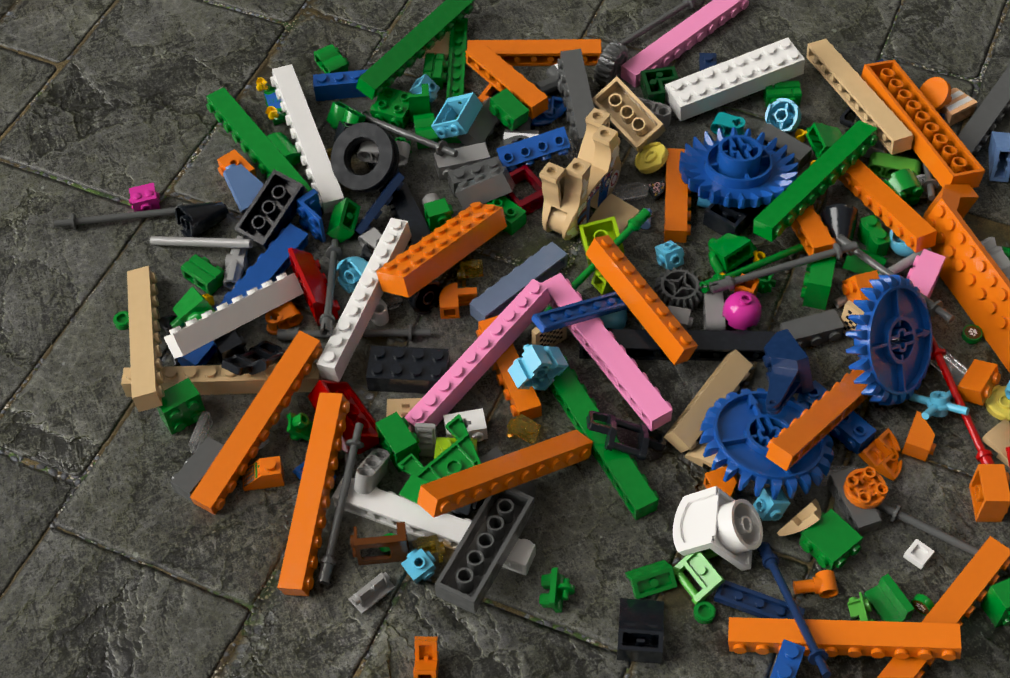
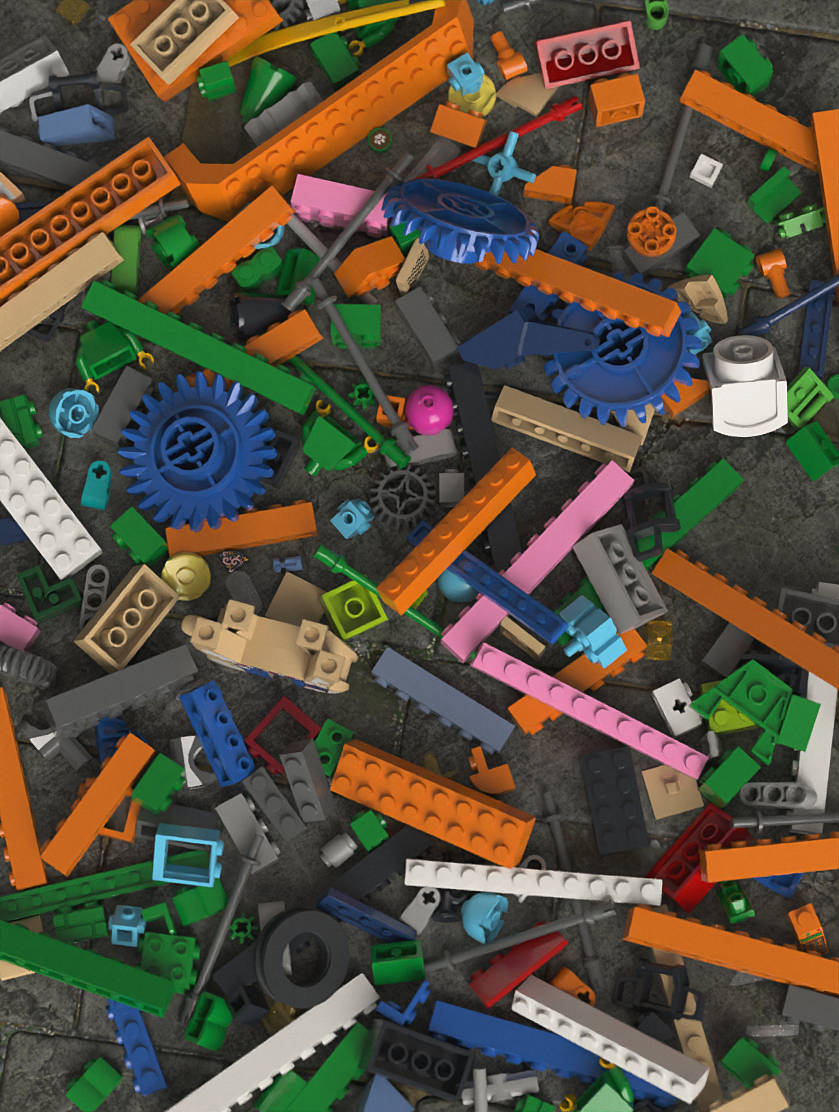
camera: 105 degrees left, 25 degrees up
(572, 399) = (619, 579): none -> light grey slope
(683, 130) = (139, 538): none -> green brick

